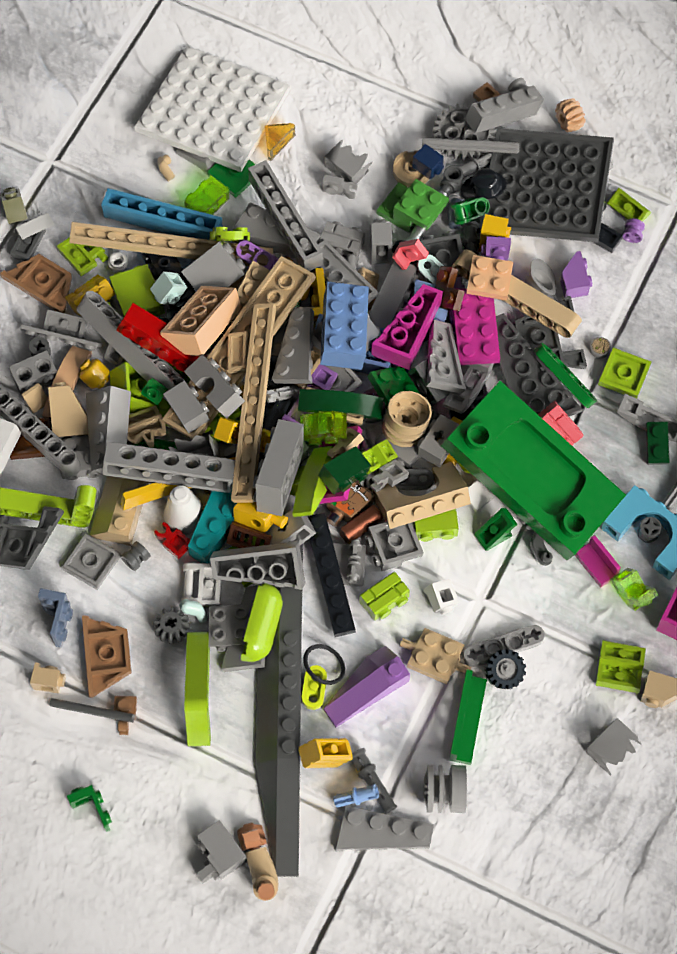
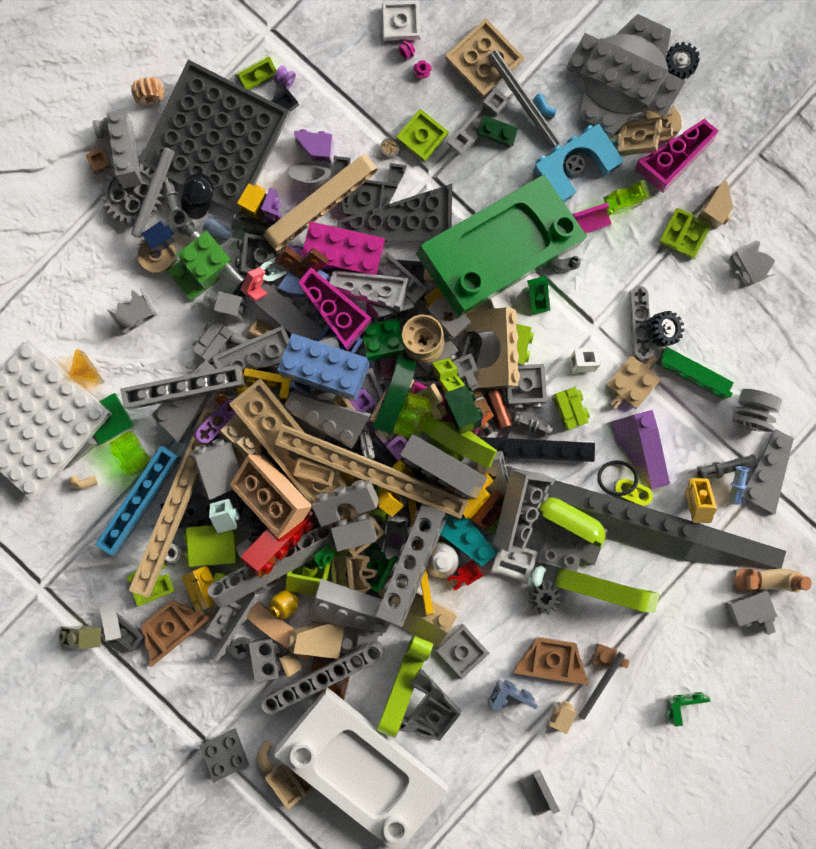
camera: 75 degrees left, 20 degrees up
(135, 556) = (471, 611): dark grey wheel -> none
(235, 235) = (186, 444): lime plate -> none
(336, 185) = (153, 330): light grey plate -> none
(466, 210) = (221, 216): green piece -> none
(489, 277) = (303, 220): light nougat plate -> none
(561, 422) = (461, 207): coral brick -> none
(565, 375) = (412, 187): green beam -> none

